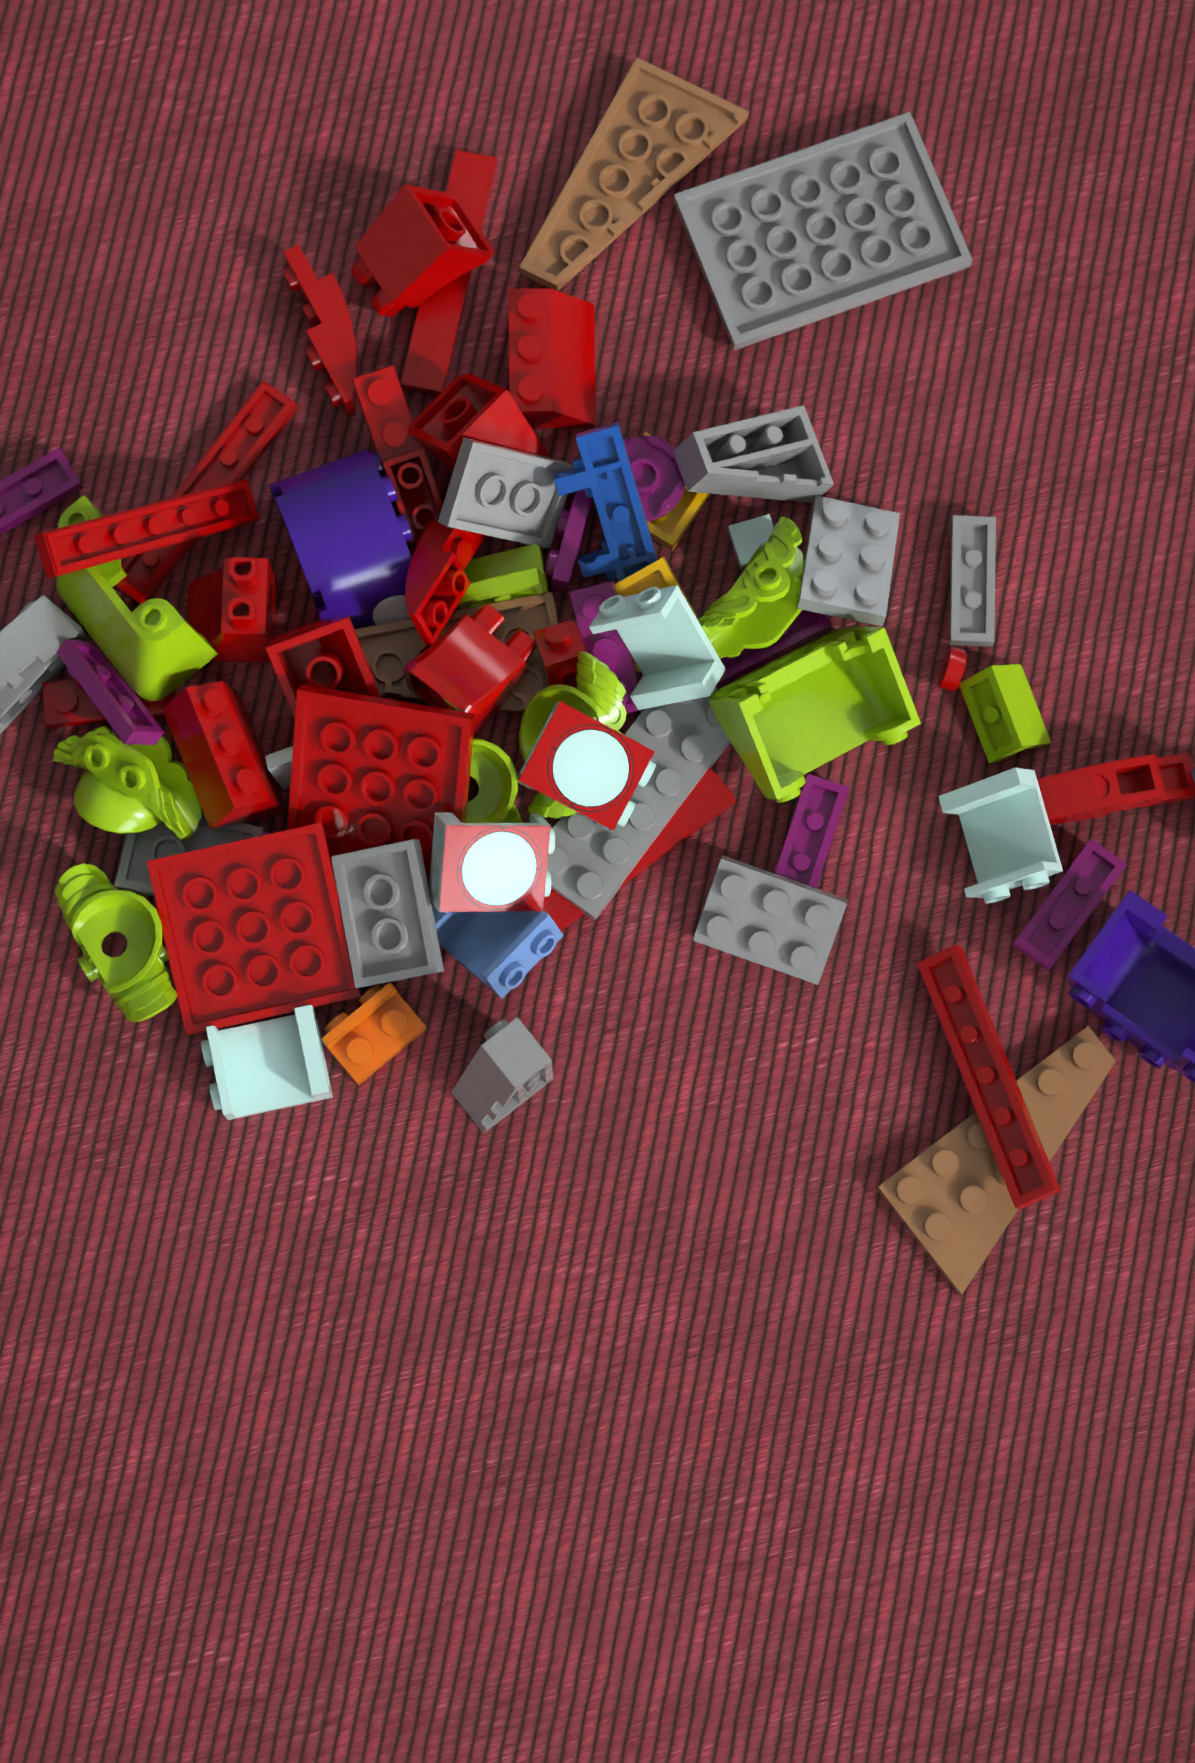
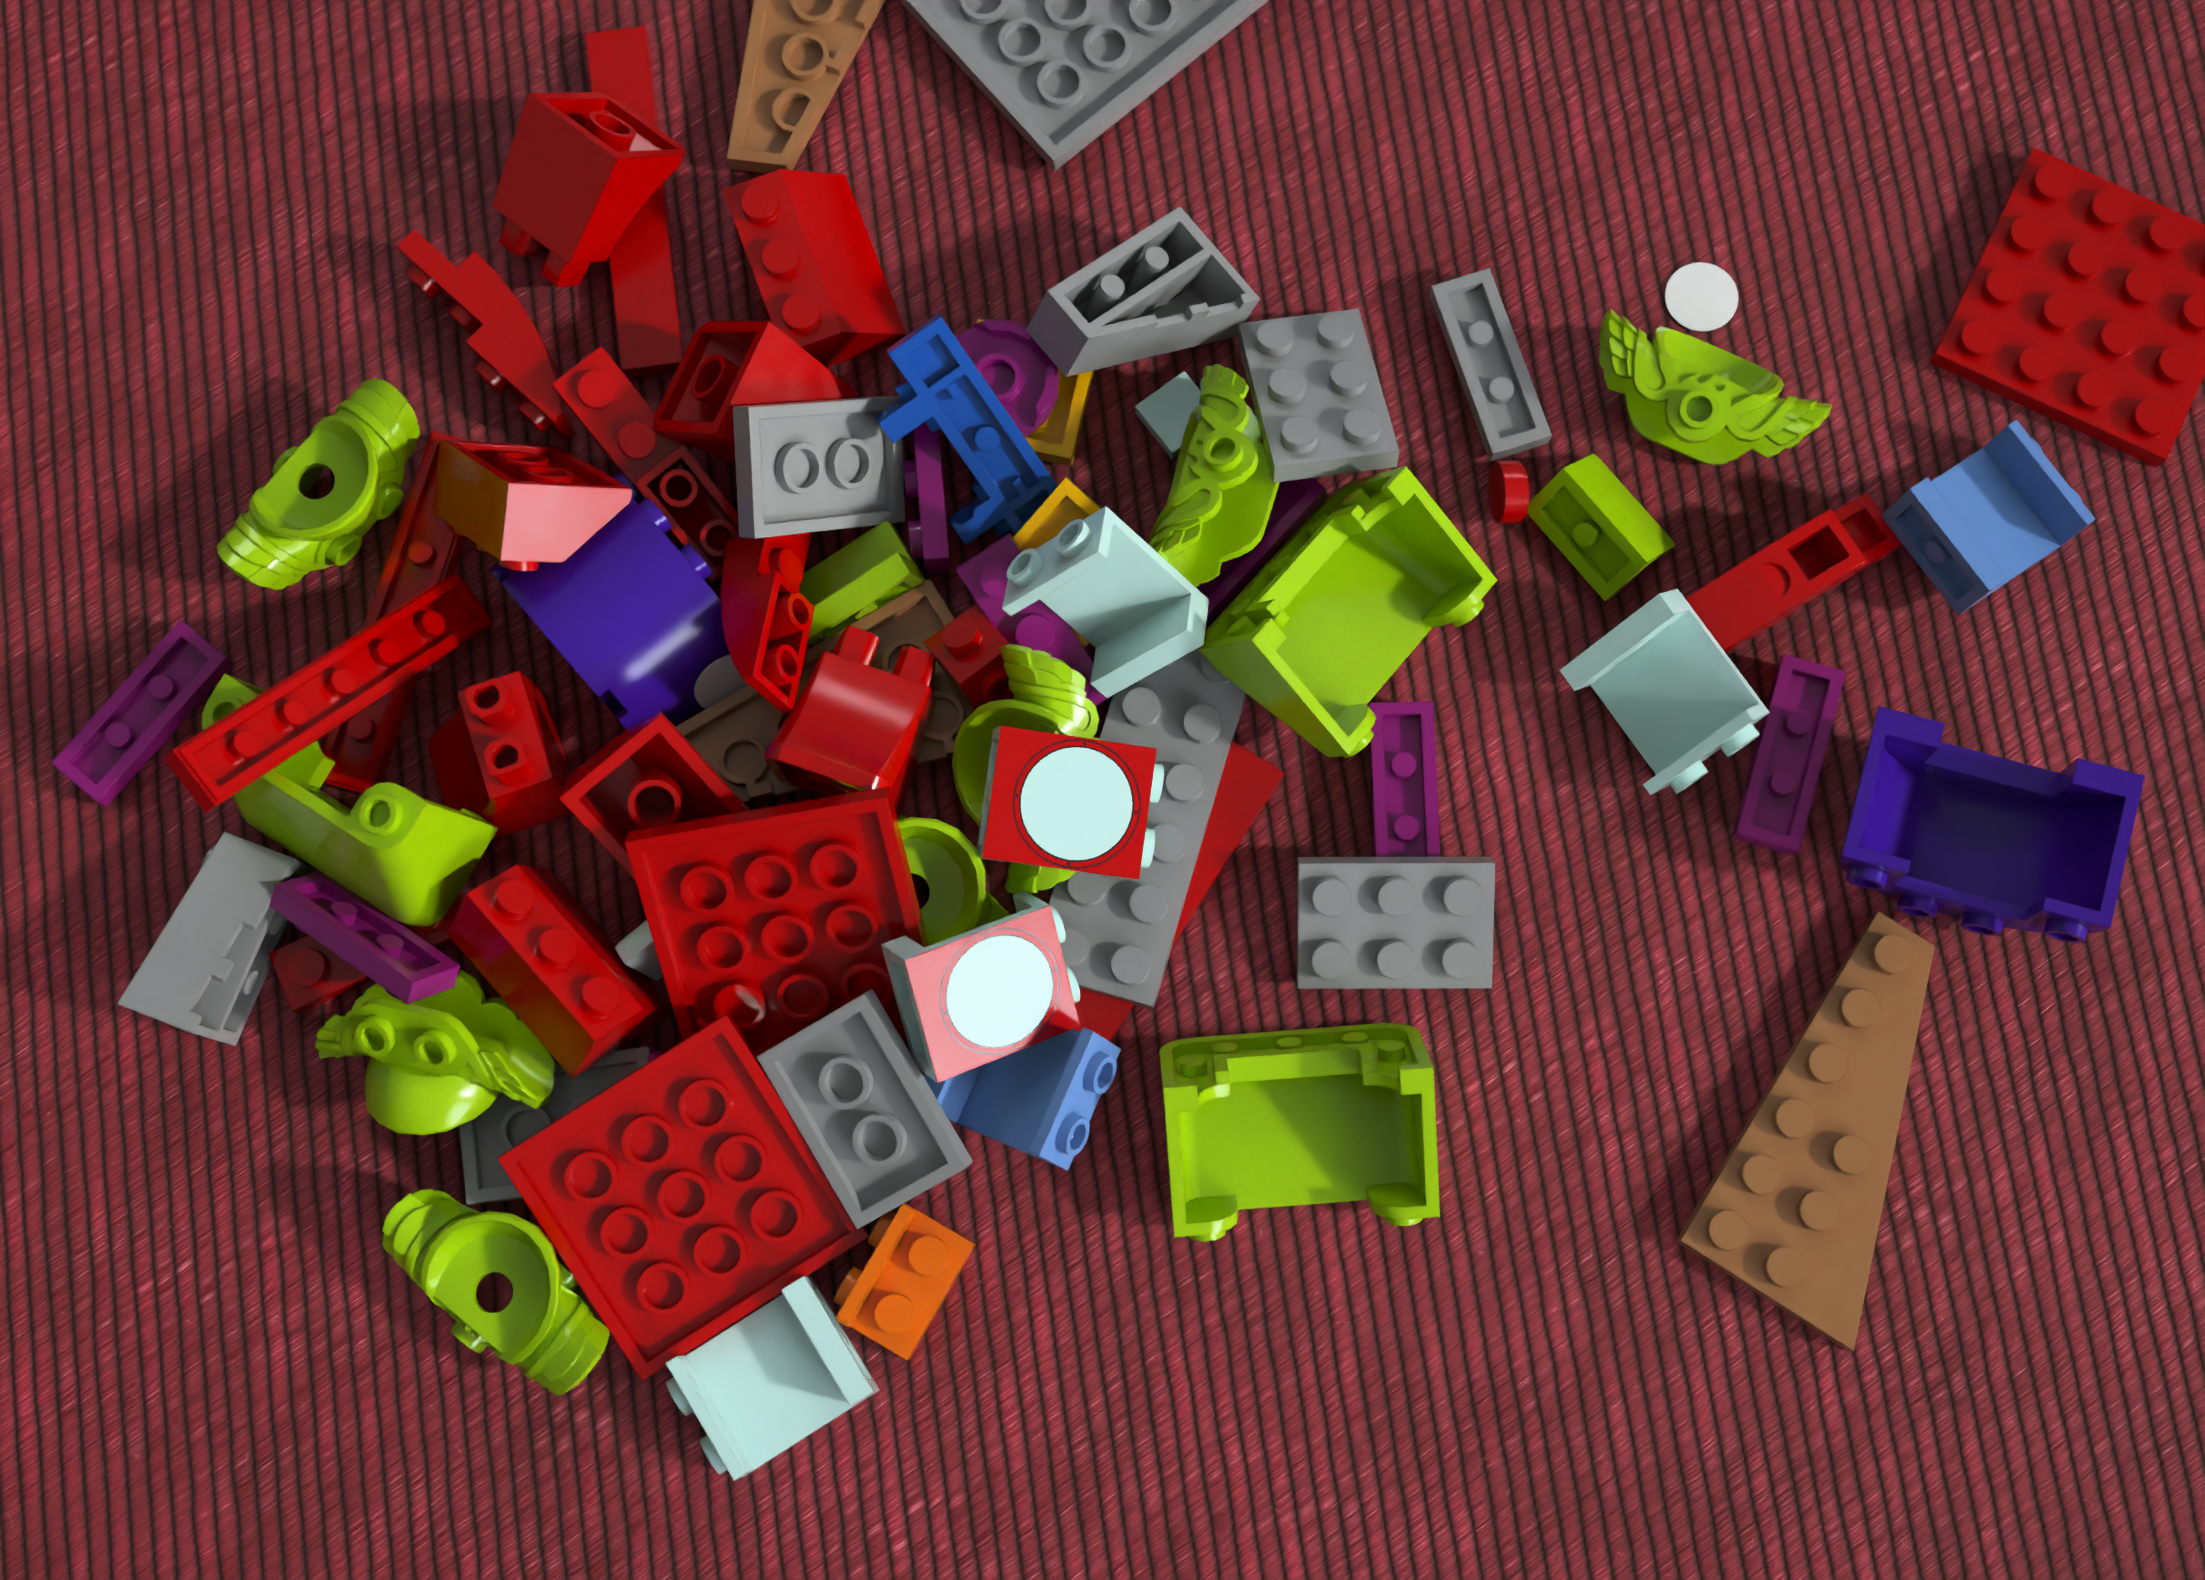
camera: 15 degrees left, 0 degrees up
(153, 419) = (292, 534): none -> lime piece
(308, 448) = (523, 499): none -> red slope
(502, 1074) = (1107, 1279): light grey wedge -> none
(658, 1025) = (1299, 1124): none -> lime windscreen
(988, 1077) = (1779, 1035): red plate -> none
(1103, 649) = (1701, 395): none -> lime piece
(1133, 585) = (1701, 296): none -> white sticker

